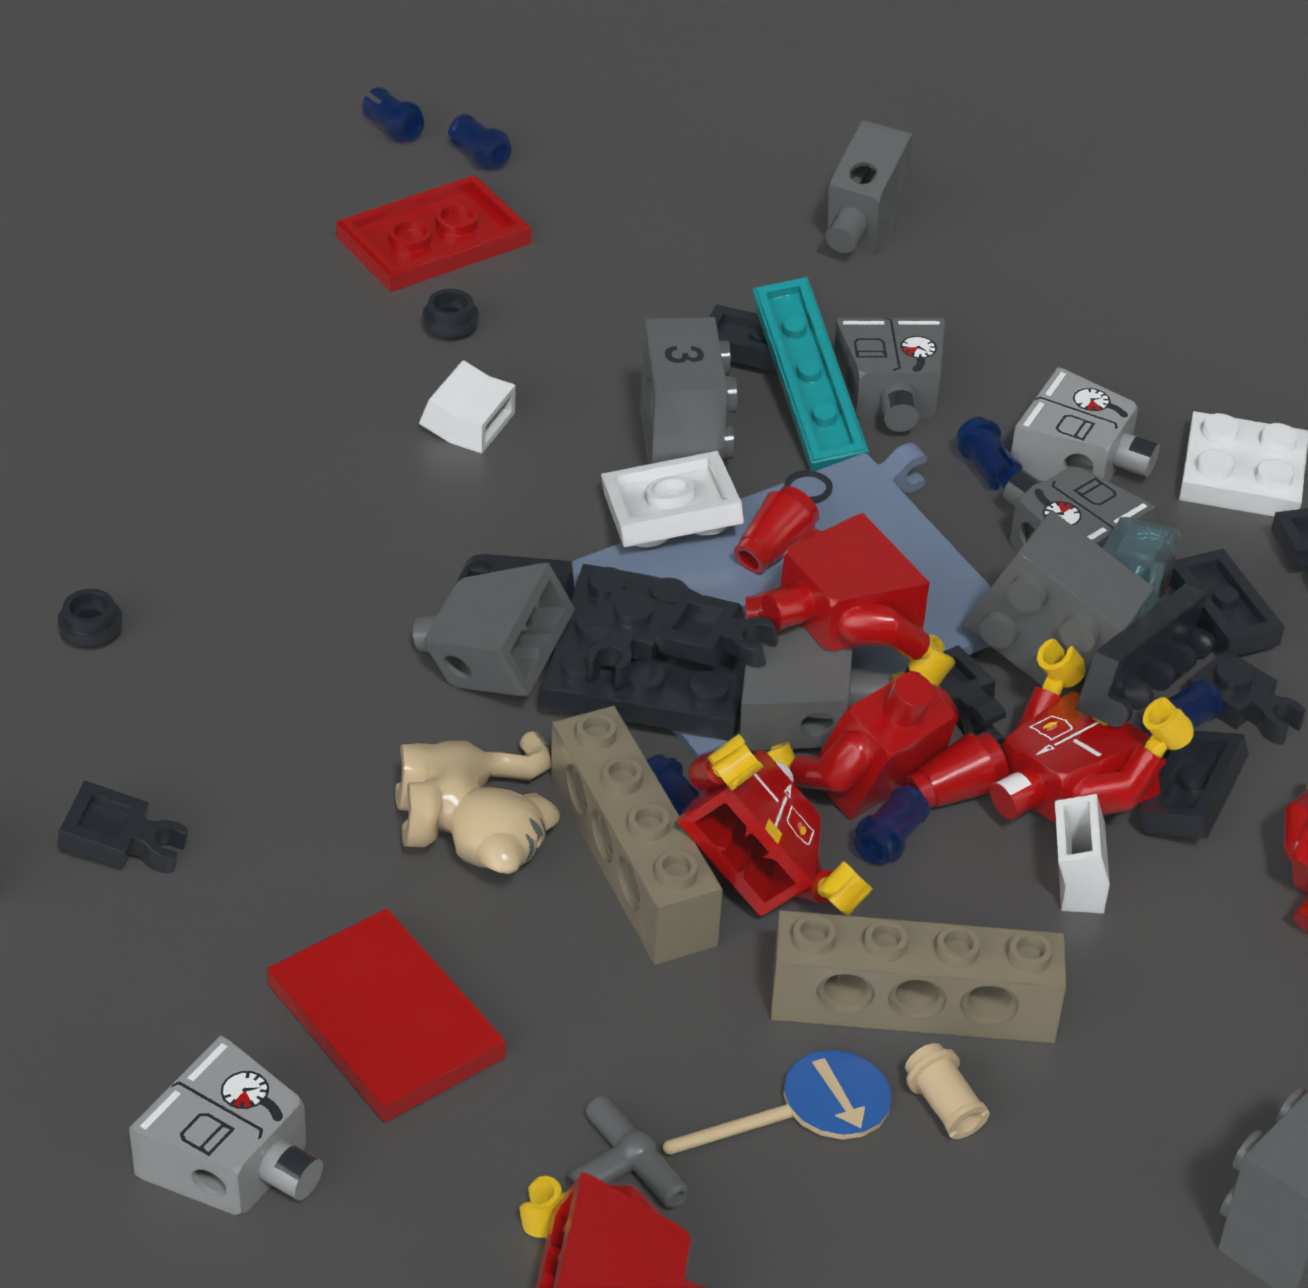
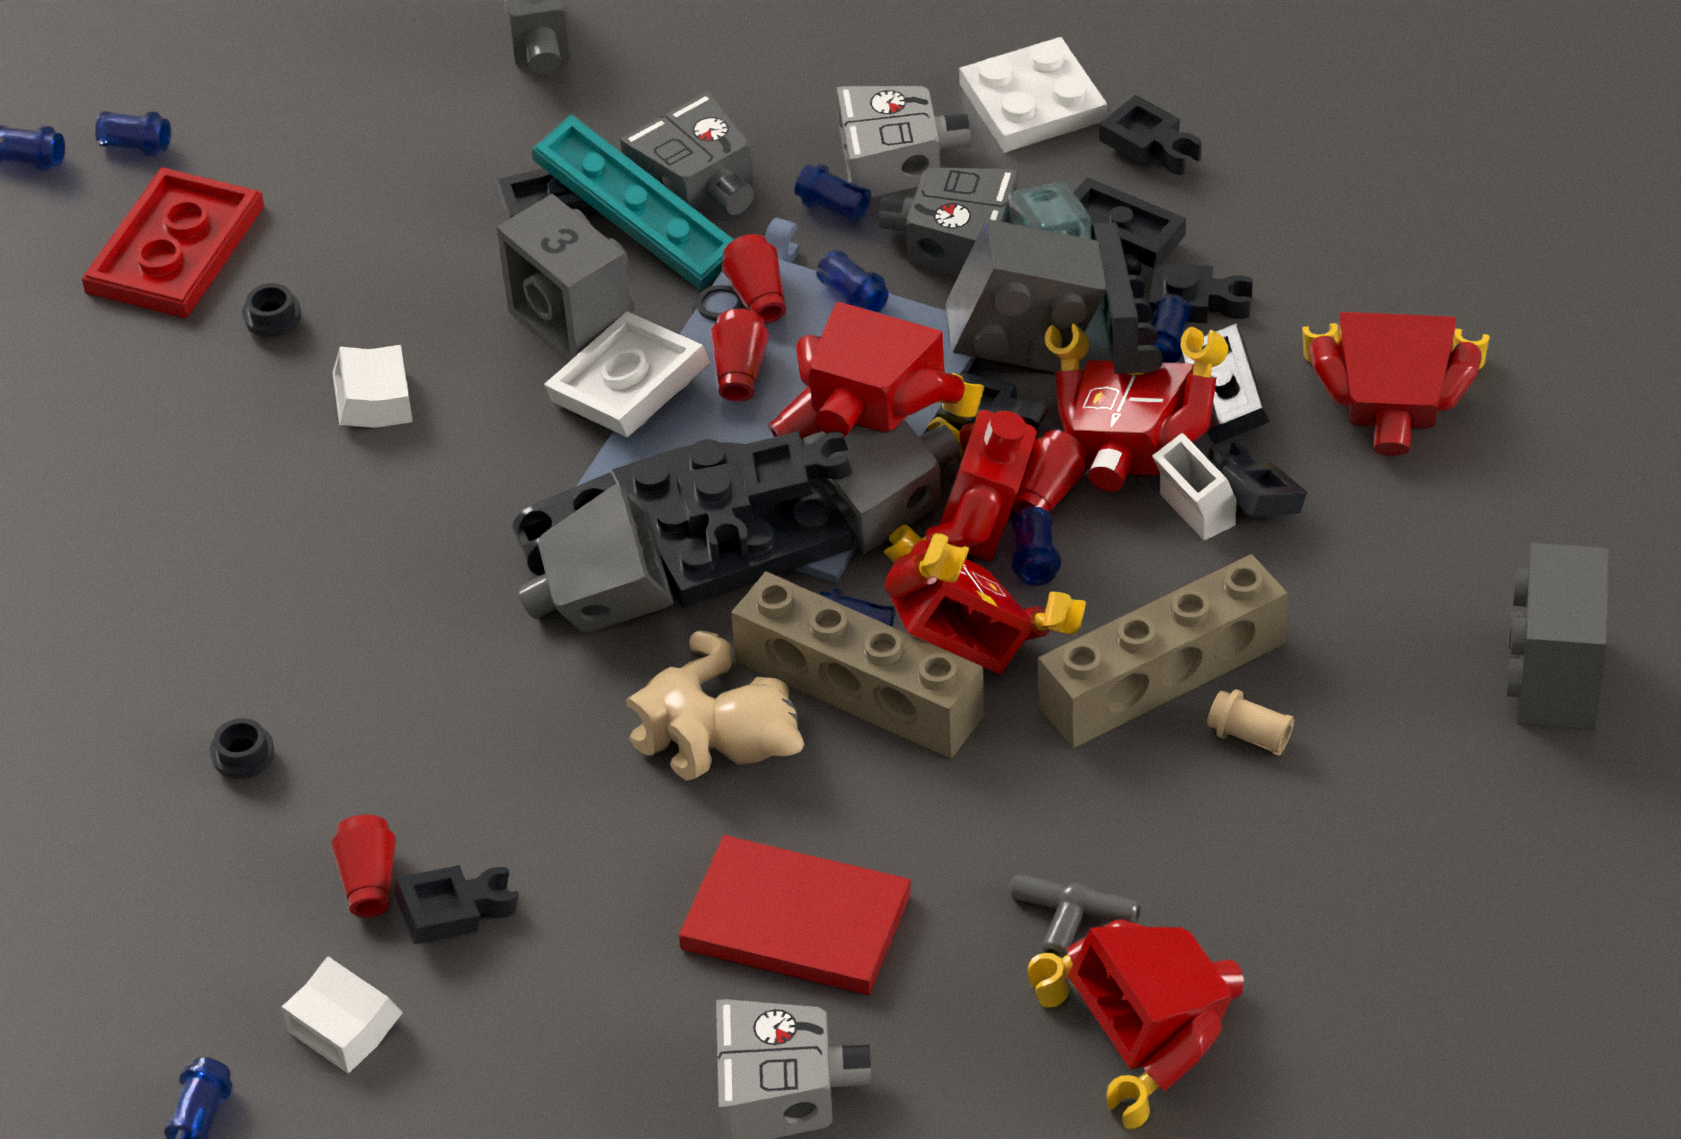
camera: 30 degrees left, 5 degrees up
(88, 752) = (365, 862): none -> red cone
(824, 1091) = (1164, 775): blue piece -> none
(848, 476) = (755, 275): none -> red cone
(929, 534) = (853, 282): none -> clear blue pin
(1142, 887) = (1258, 487): none -> black plate

